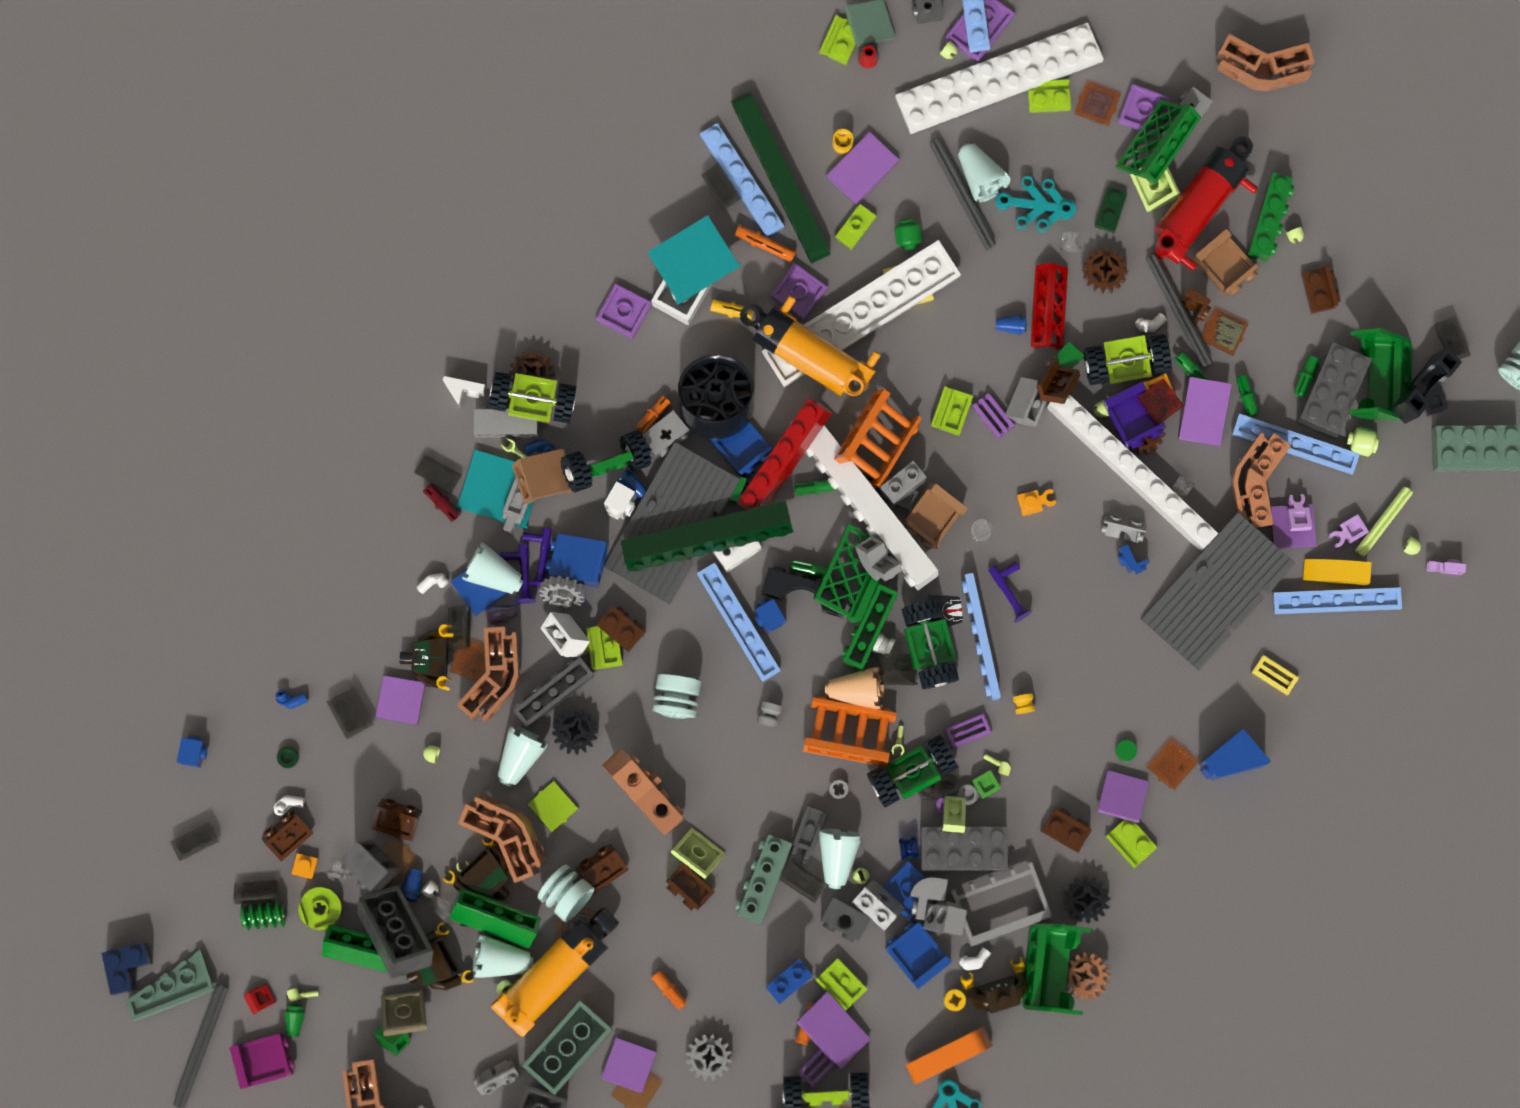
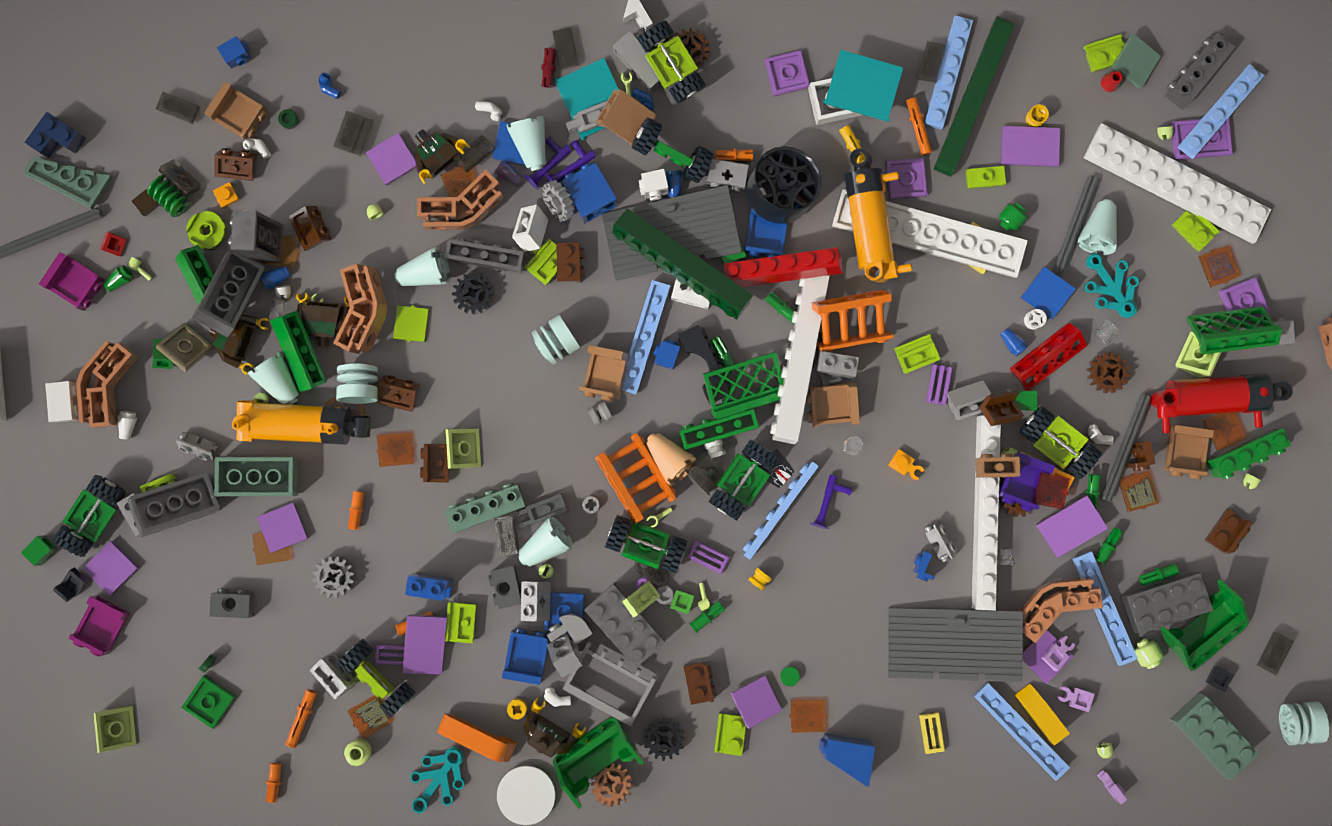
camera: 45 degrees right, 5 degrees up
(243, 795) = (236, 111): none -> medium nougat panel
(249, 940) = (145, 203): none -> dark brown tile
(641, 788) = (471, 374): nougat brick -> none
(646, 913) = (394, 449): none -> clear orange piece
(740, 680) = (605, 373): none -> medium nougat panel
(876, 560) = (767, 393): light grey brick -> none
(908, 848) = (592, 587): clear blue wheel -> none
(996, 261) = (1048, 292): none -> blue tile
(1009, 286) = (1039, 318): none -> white wheel
(1016, 775) = (707, 616): none -> green axle
(1033, 1057) = (526, 795): none -> white tile
(1101, 428) = (997, 466): none -> medium nougat brick
(1111, 210) = (1154, 339): dark green plate -> none
(1235, 217) = (1226, 430): none -> clear orange piece
(1383, 522) = (1105, 715): yellowish green axle -> none
(1415, 397) = (1210, 665): black arch -> none

